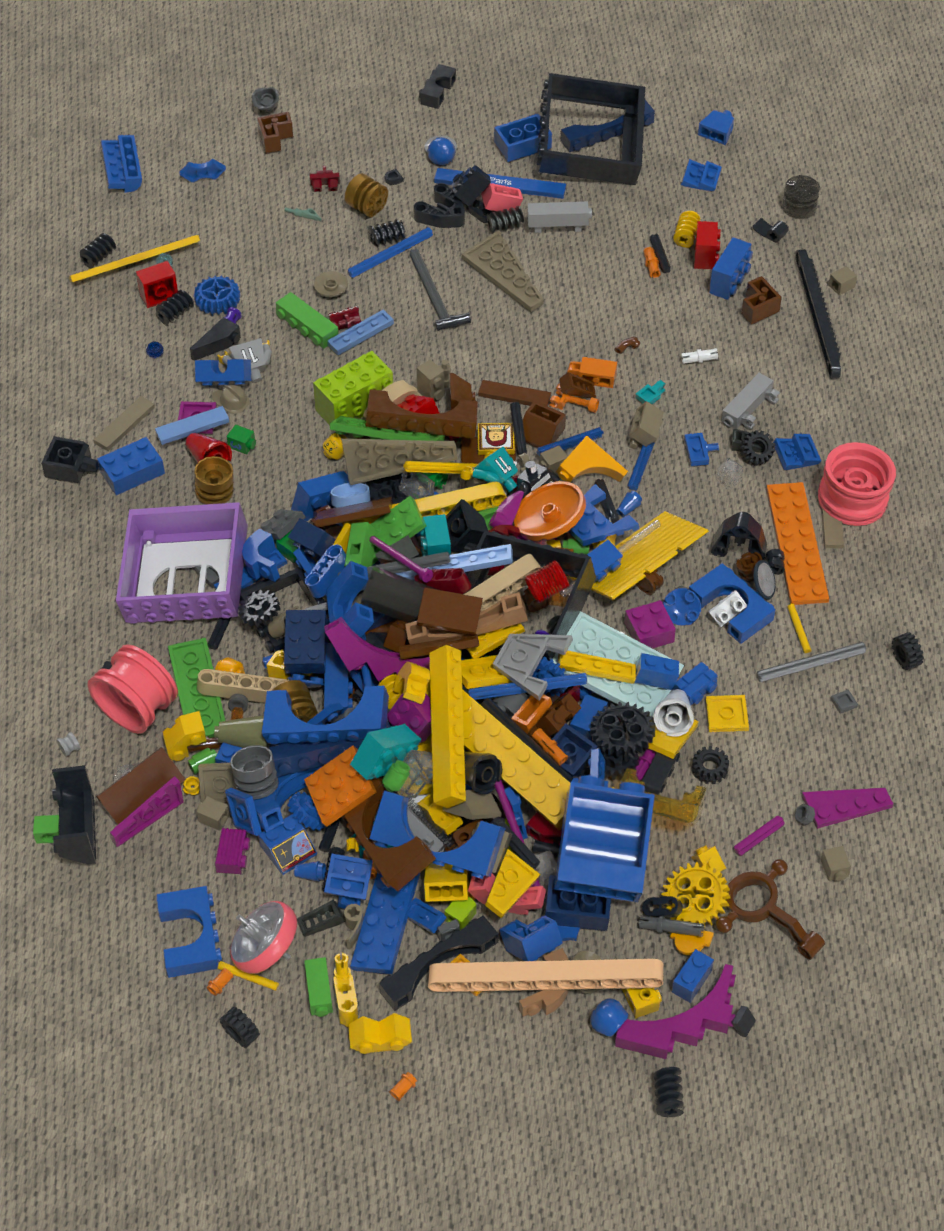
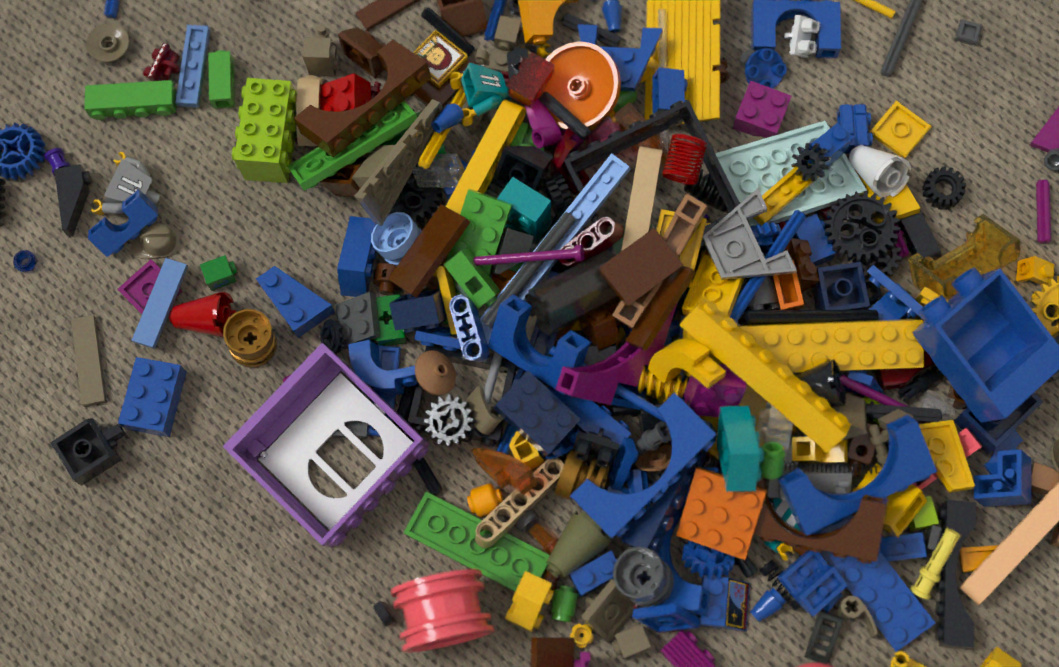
camera: 45 degrees left, 20 degrees up
(256, 660) = (505, 469): none -> clear orange slope
(257, 520) = (332, 335): none -> black gear
(259, 487) = (295, 302): none -> blue wedge
(275, 579) = (430, 378): none -> medium nougat dish
(319, 689) = (595, 445): none -> black hips
(333, 446) = (312, 200): yellow head -> none
(372, 342) = (221, 79): none -> bright green brick
(422, 943) = (931, 573): none -> light yellow pin
(452, 460) = (448, 117): none -> blue cone
(522, 518) = (564, 115): none -> black axle
(524, 482) = (531, 79): none -> clear red brick
(550, 746) = (832, 301): orange pin -> none
(629, 659) = (814, 170): none -> black gear

